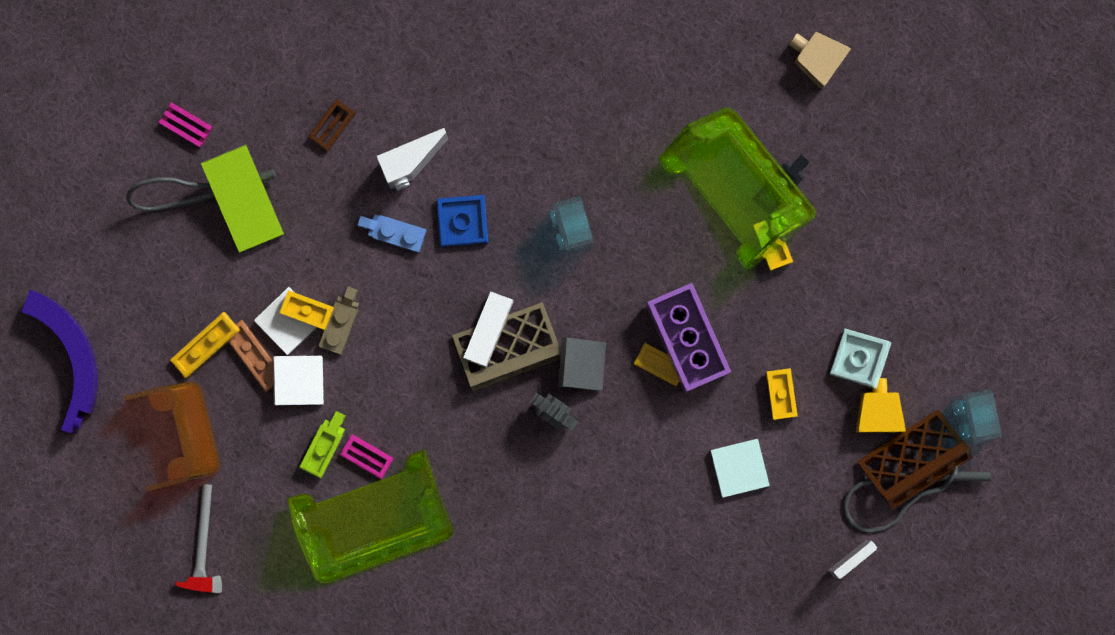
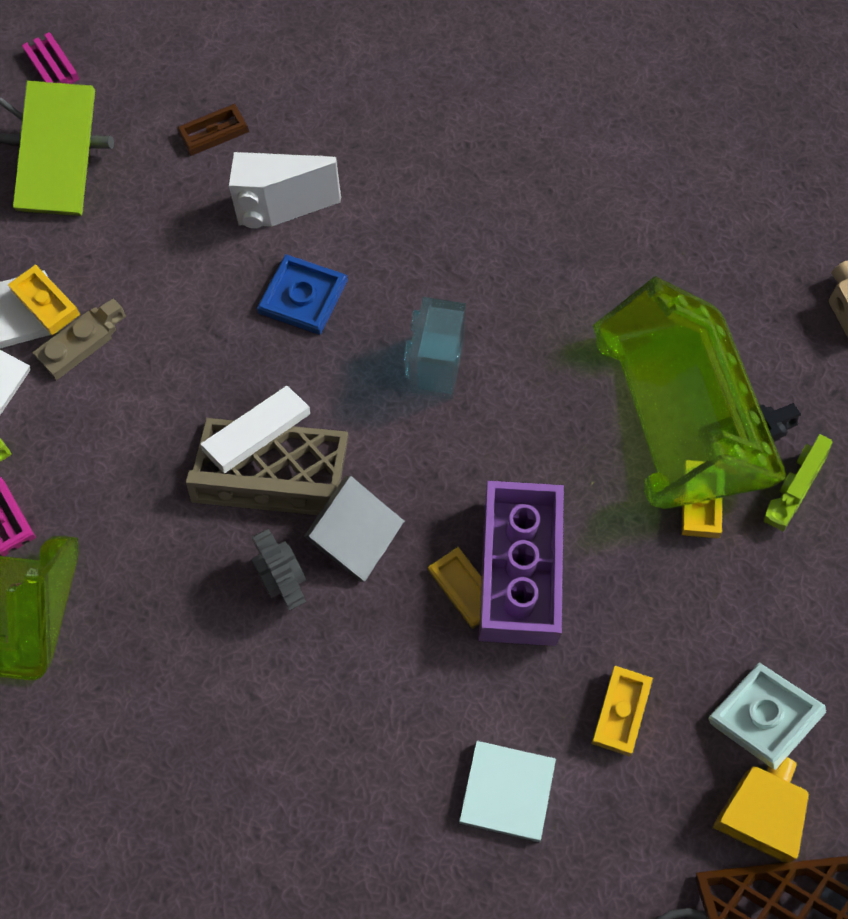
camera: 30 degrees right, 20 degrees down
(394, 232) = (211, 269): medium blue hinge -> none
(823, 208) = (796, 486): none -> lime hinge

